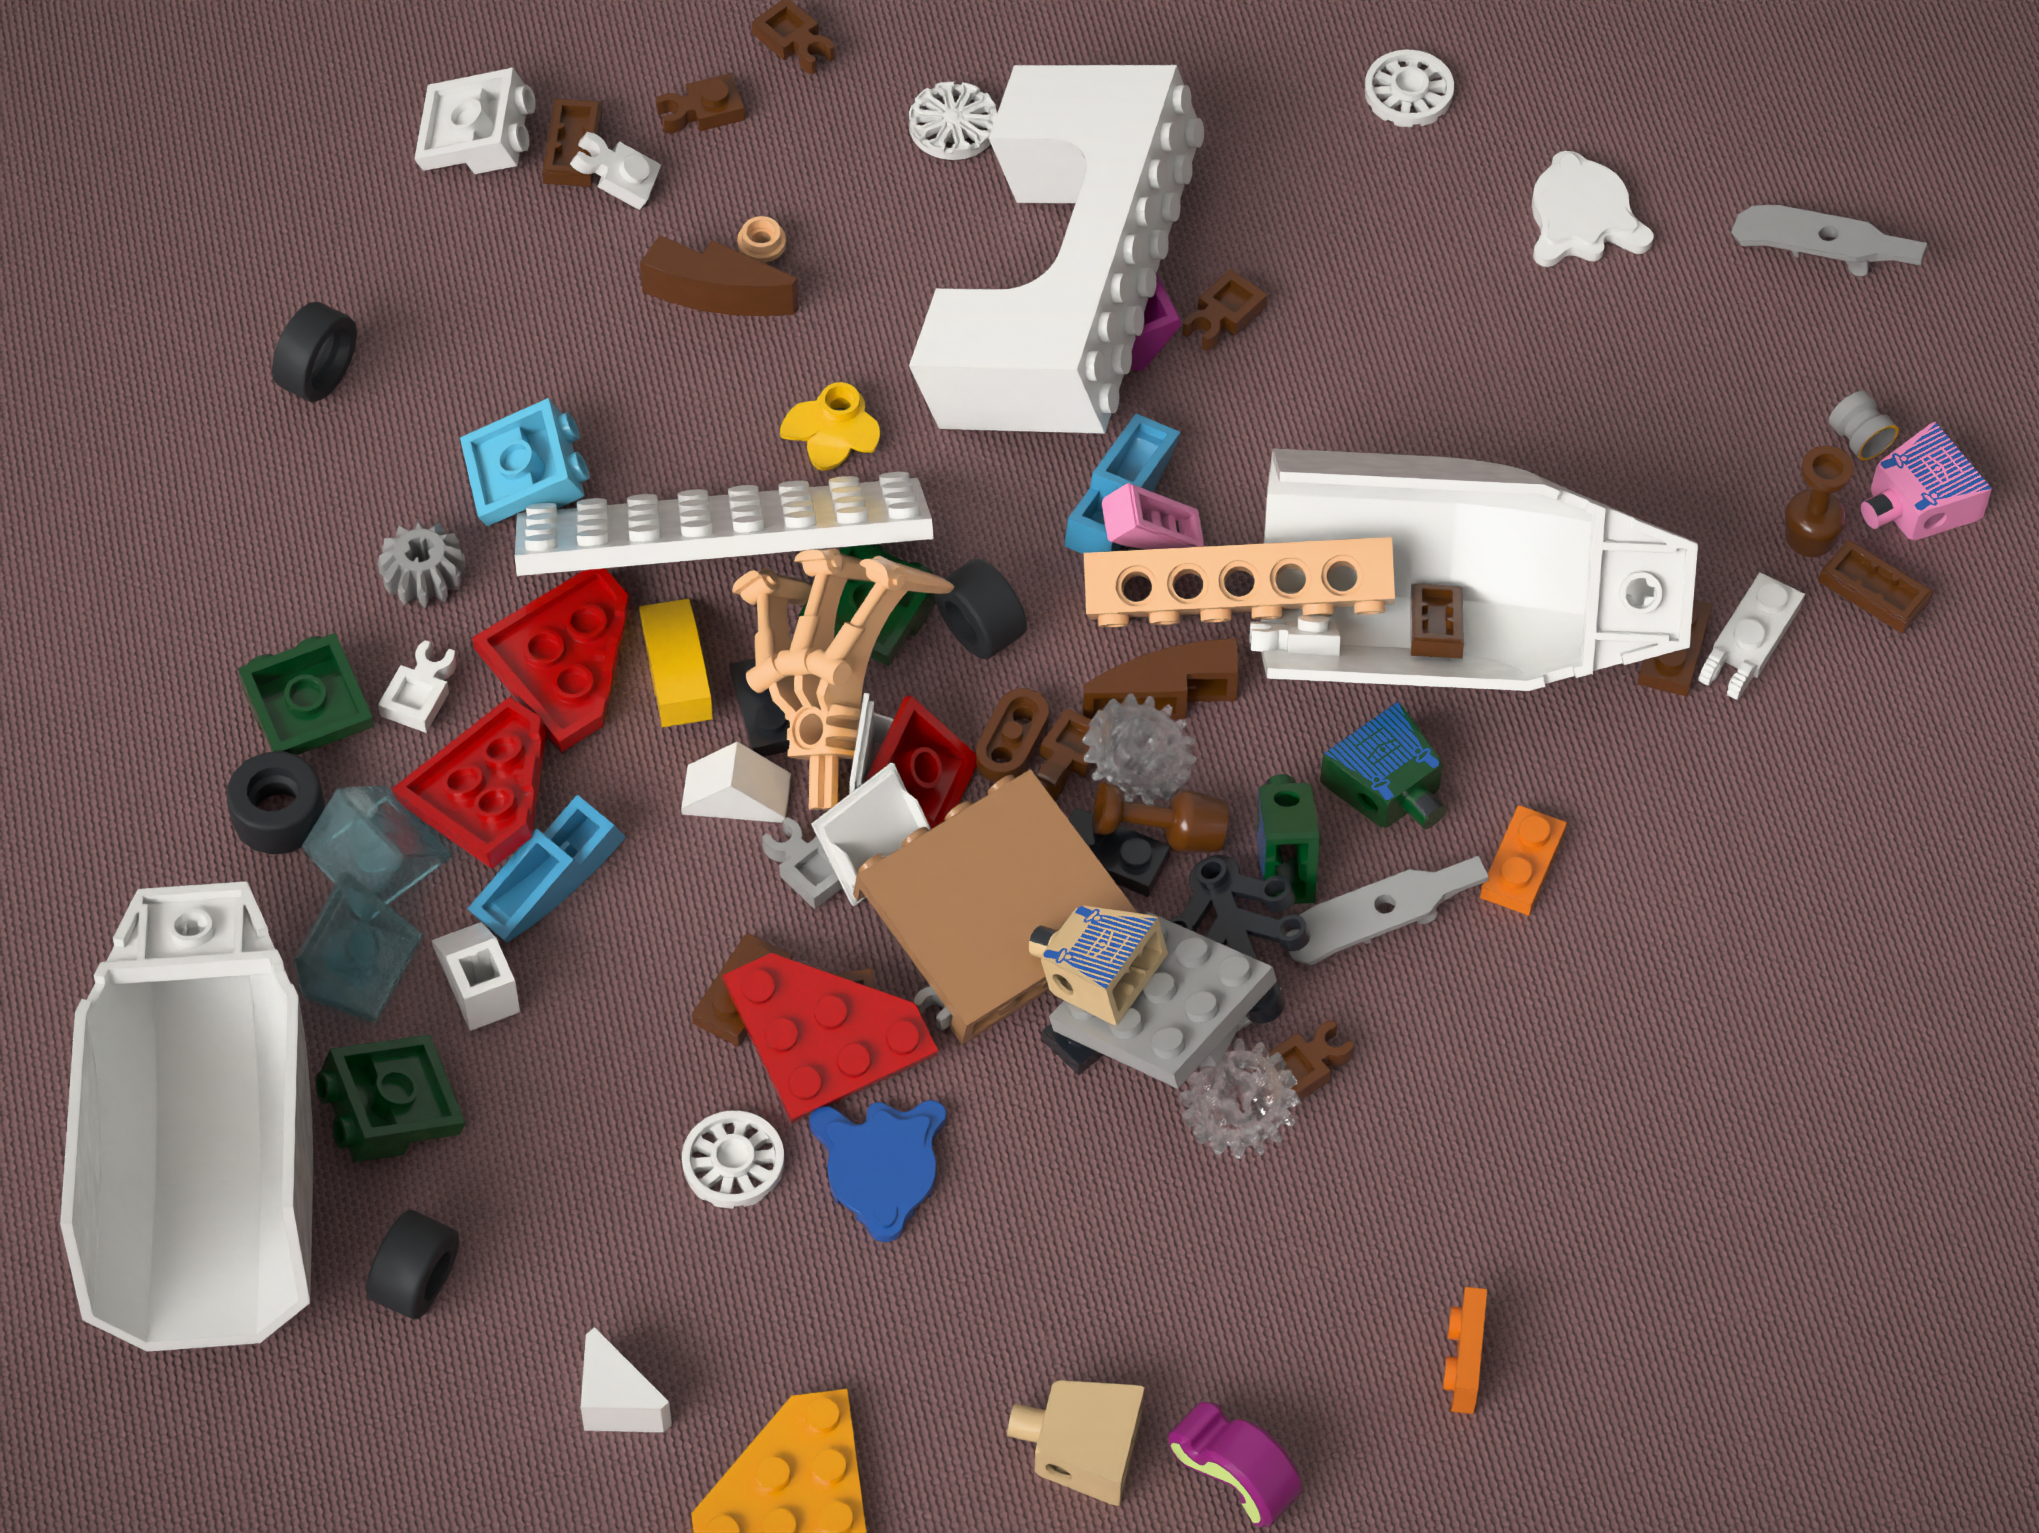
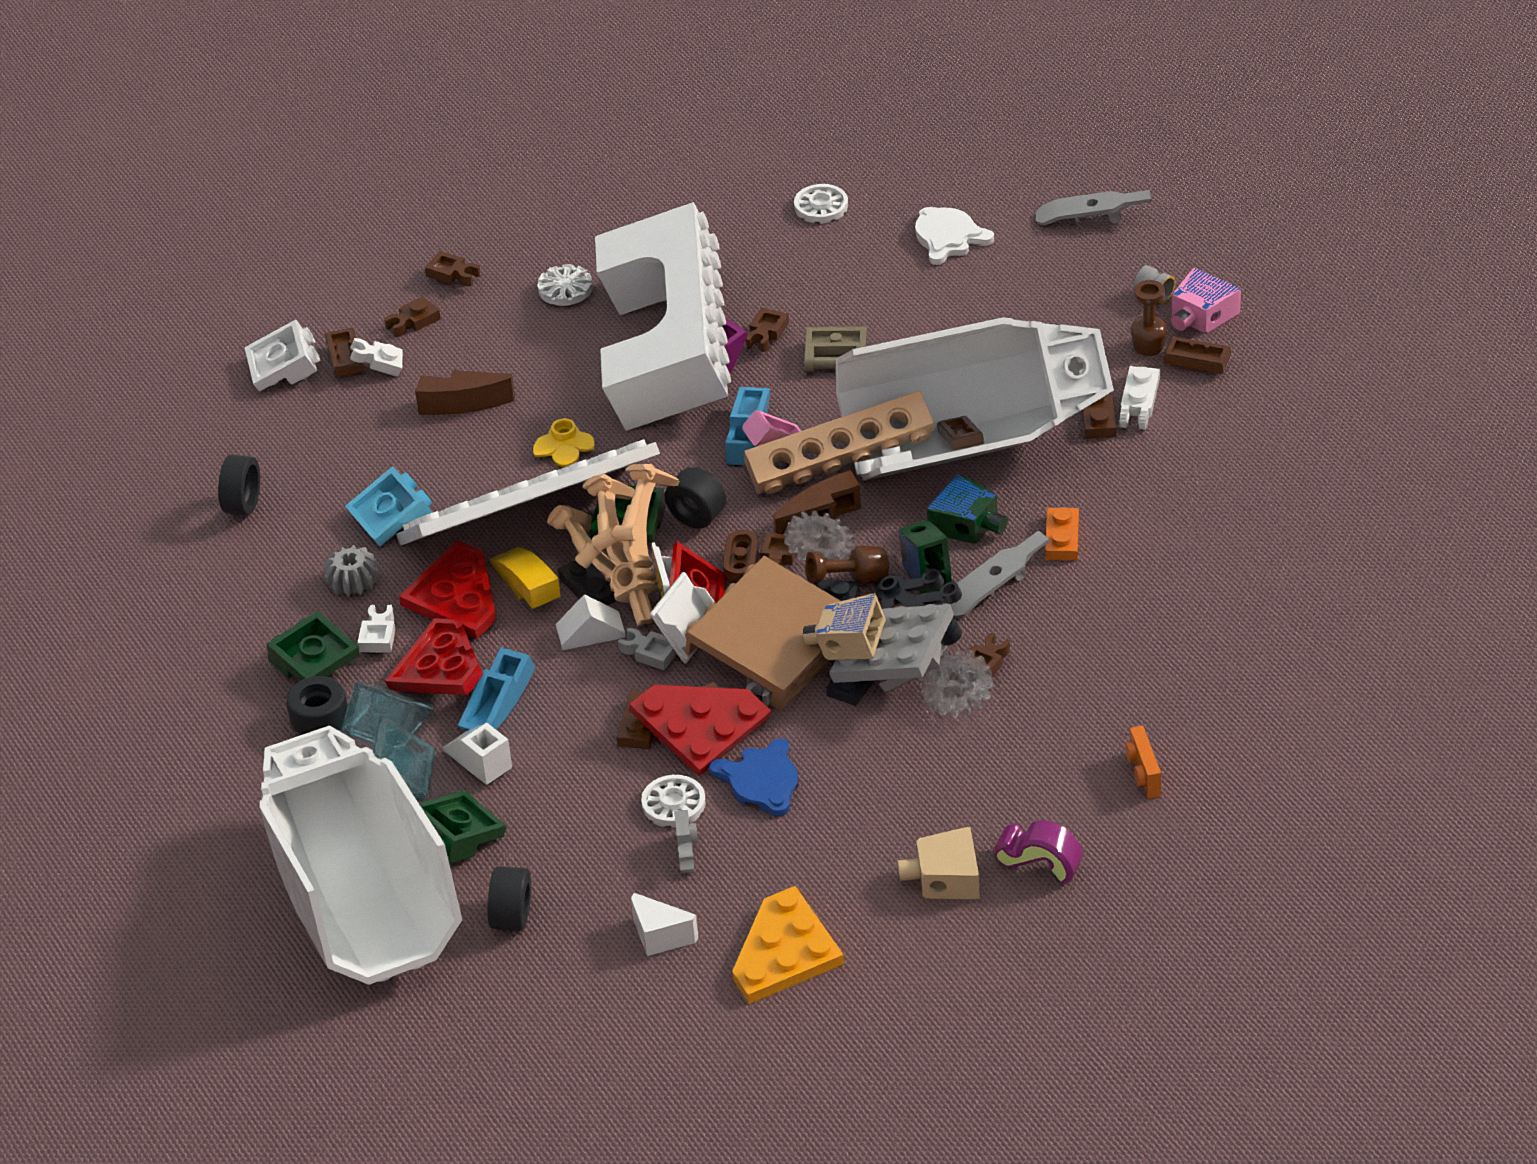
camera: 15 degrees left, 15 degrees down
(719, 1238) = (686, 837): none -> light grey plate
(761, 230) = (479, 363): light nougat plate -> none
(1319, 371) = (831, 342): none -> dark tan plate

